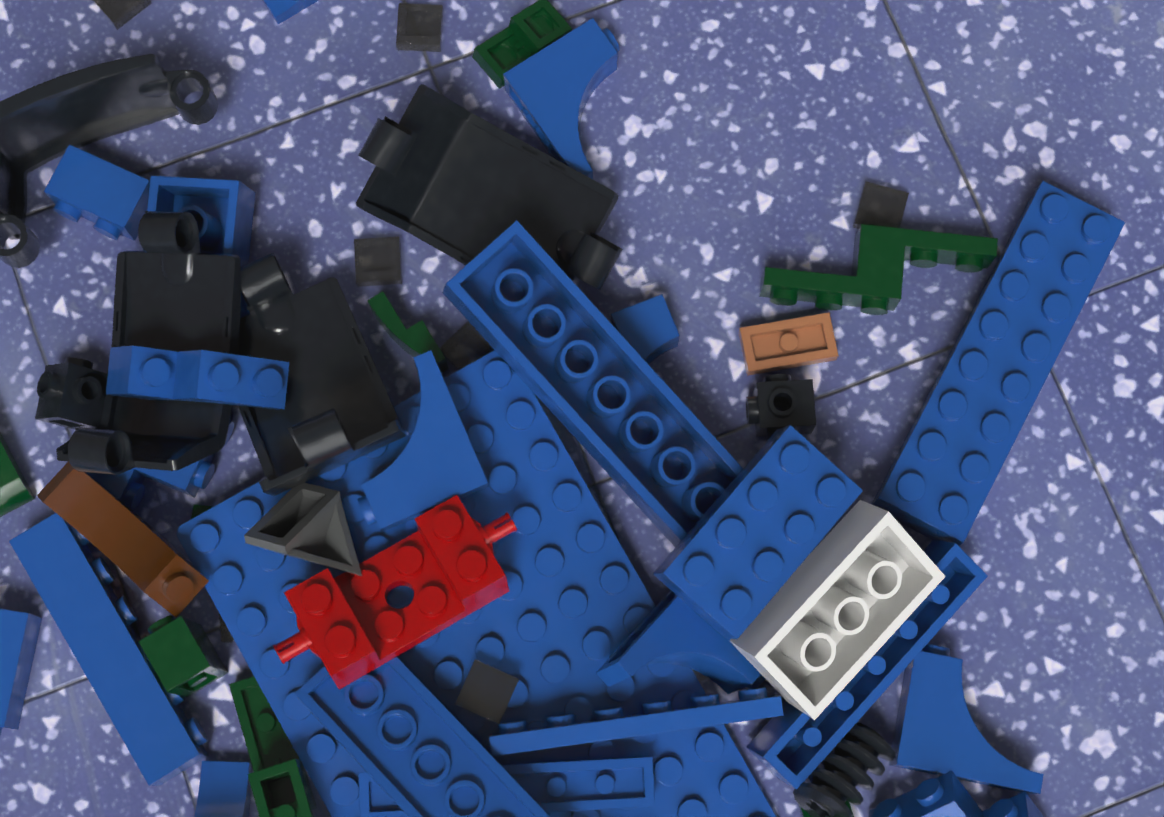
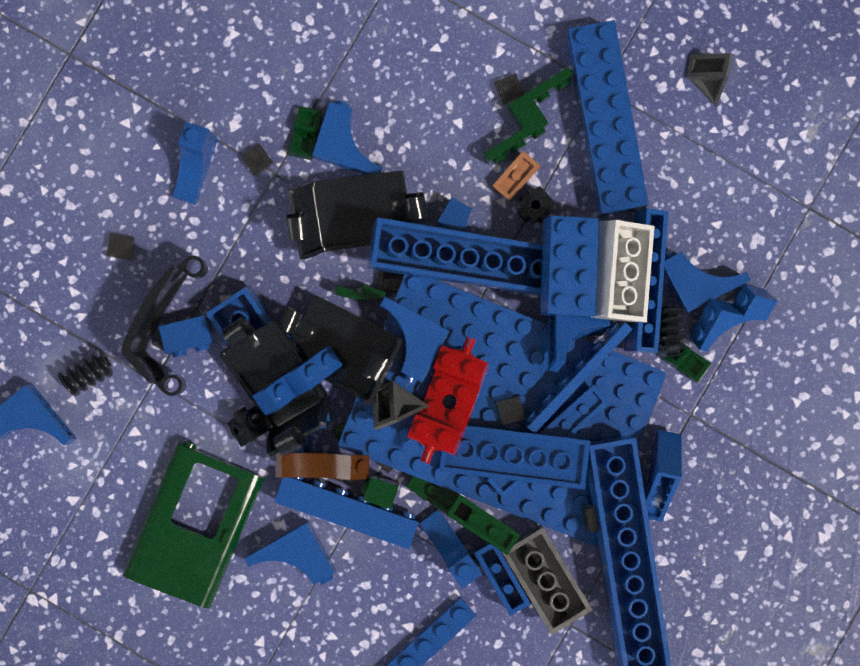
camera: 45 degrees left, 10 degrees up
(378, 261) = (322, 273): clear smoke tile -> none

